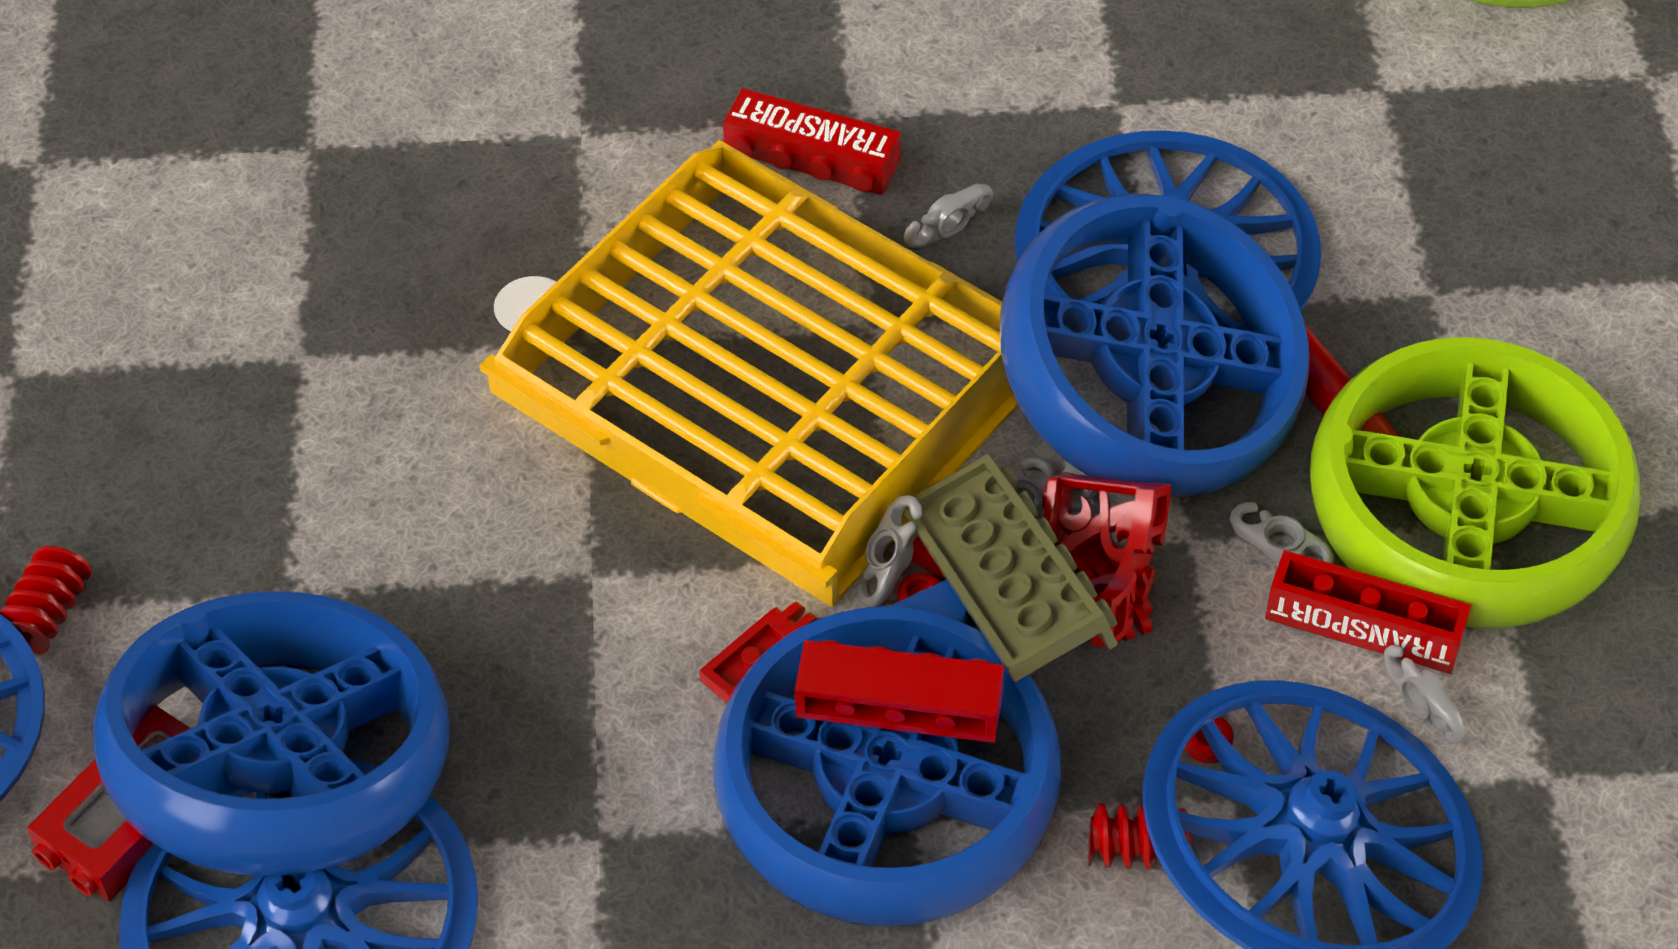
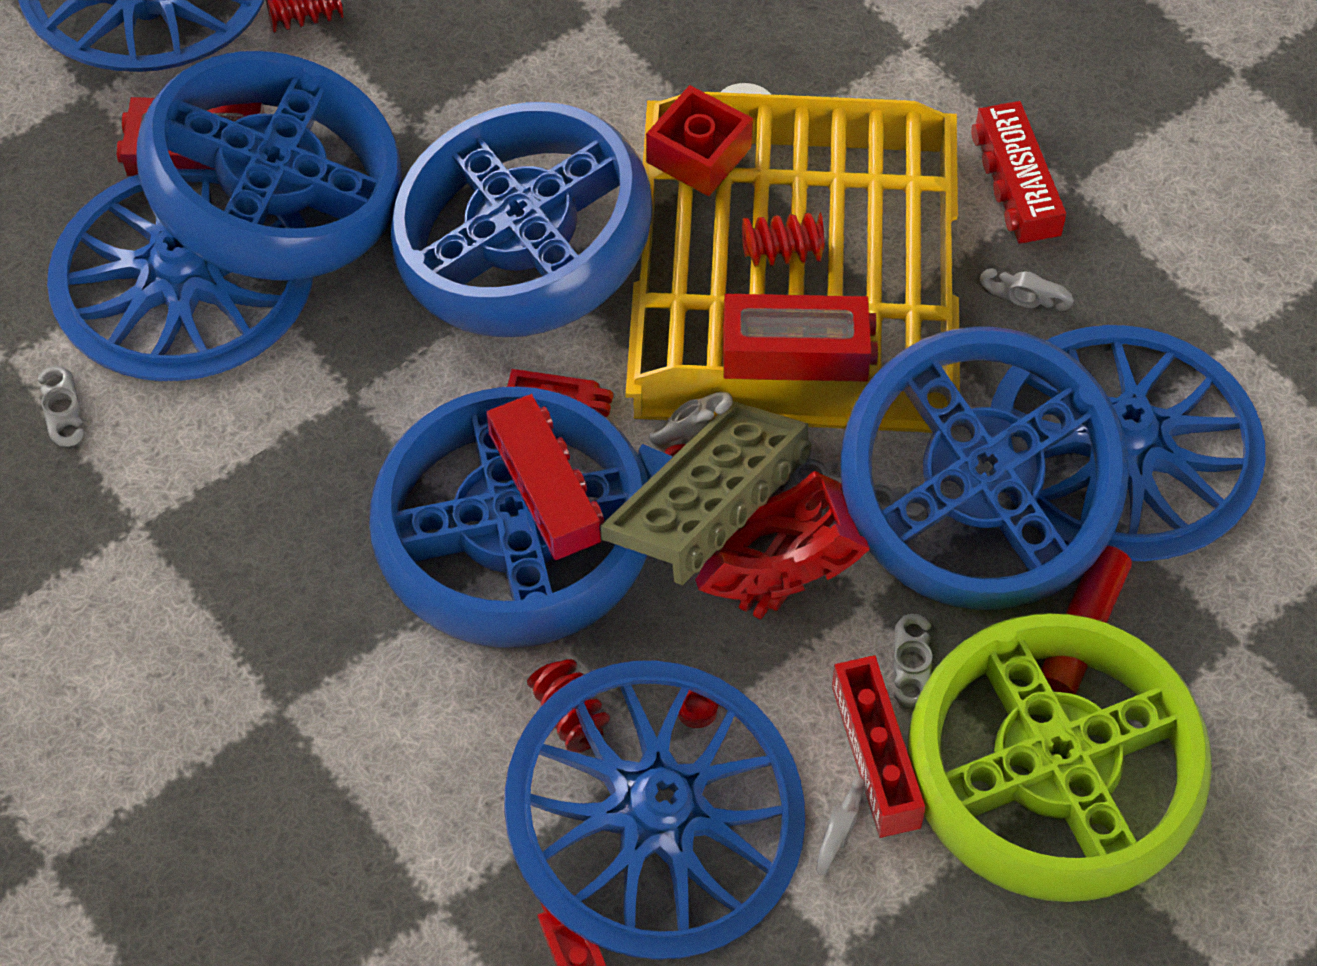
camera: 55 degrees right, 5 degrees up
(544, 427) = (521, 219): none -> blue wheel
(603, 336) = (699, 140): none -> red brick
(777, 341) = (783, 239): none -> red piece
(903, 396) = (798, 337): none -> red piece

